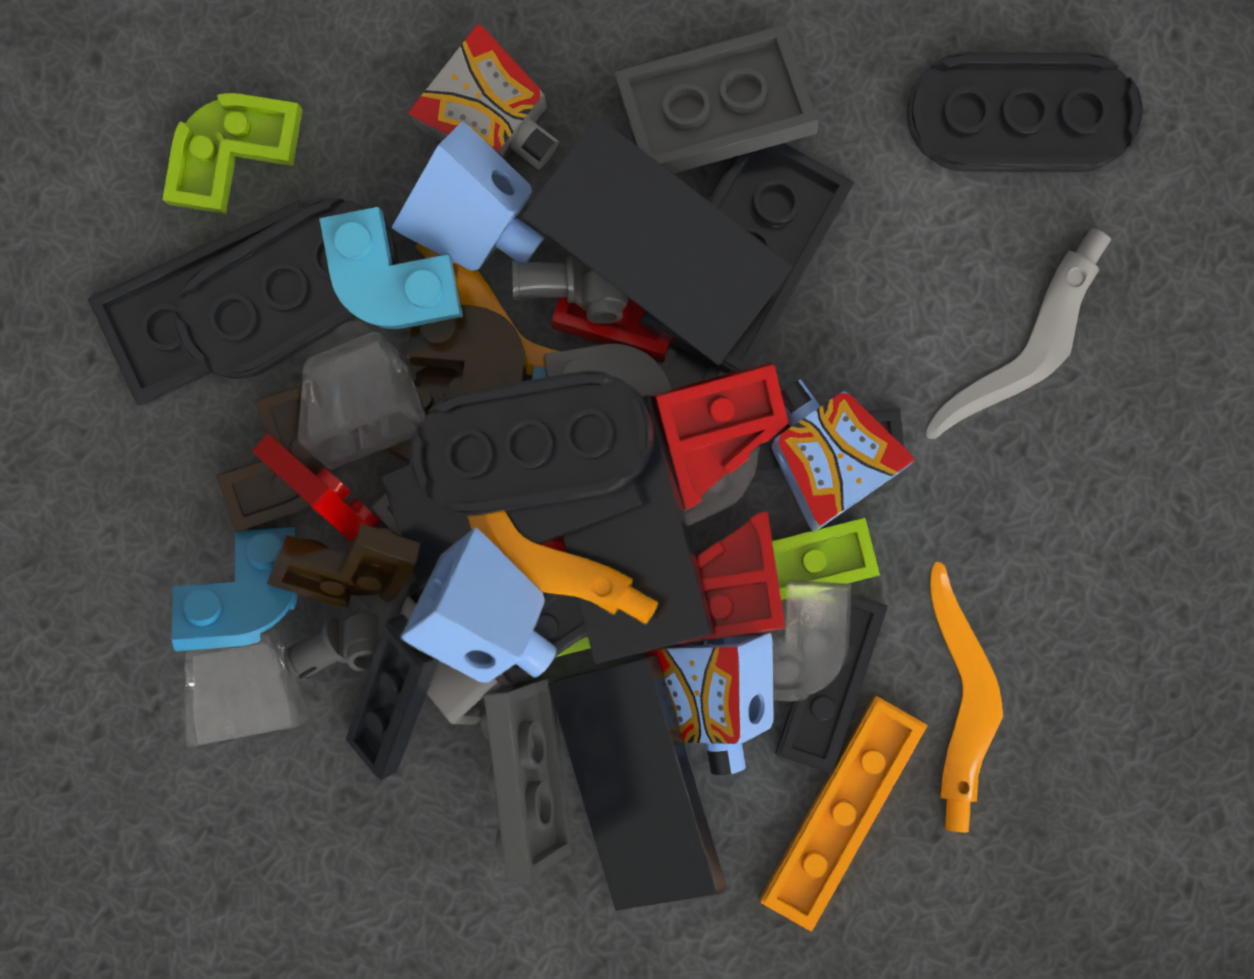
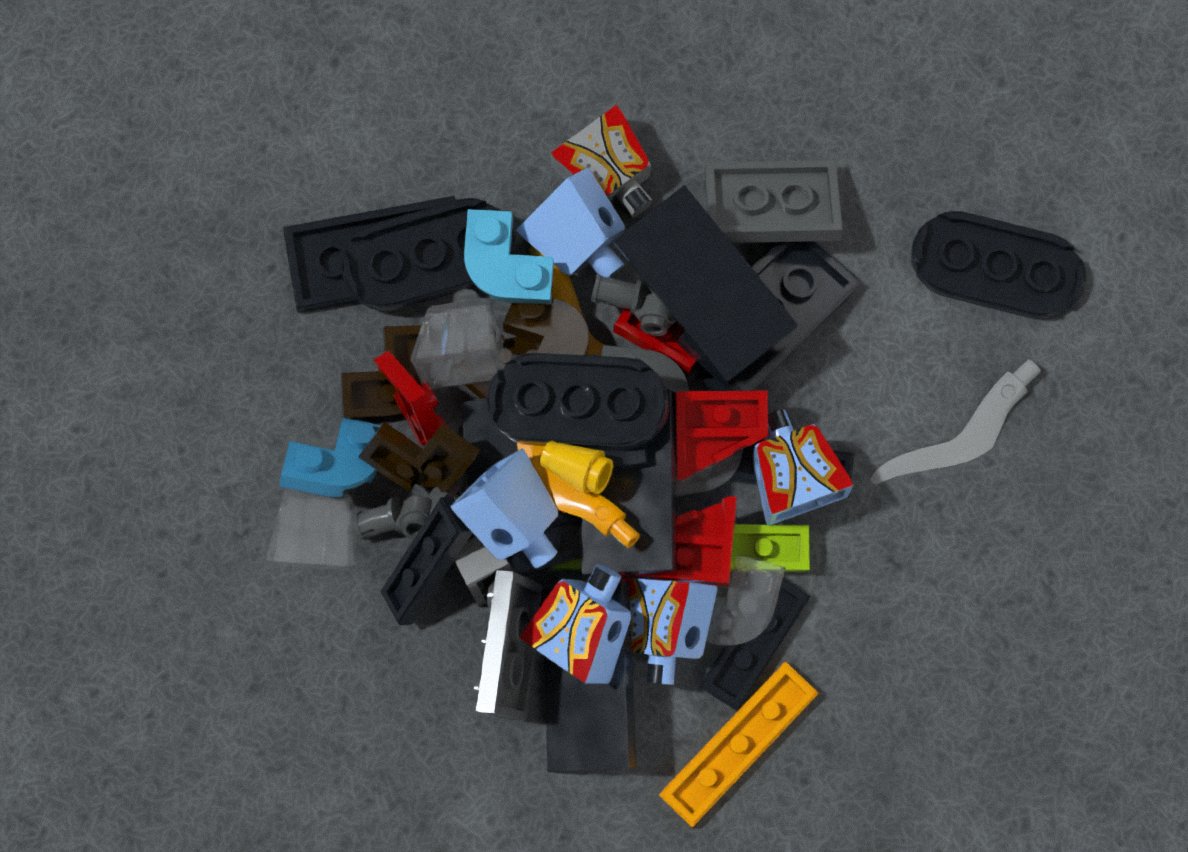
camera: 10 degrees right, 10 degrees down
(219, 132) = (409, 136): lime plate -> none
(554, 533) = (579, 466): none -> yellow cone
(612, 733) = (581, 626): none -> torso
(979, 706) = (862, 692): light orange piece -> none

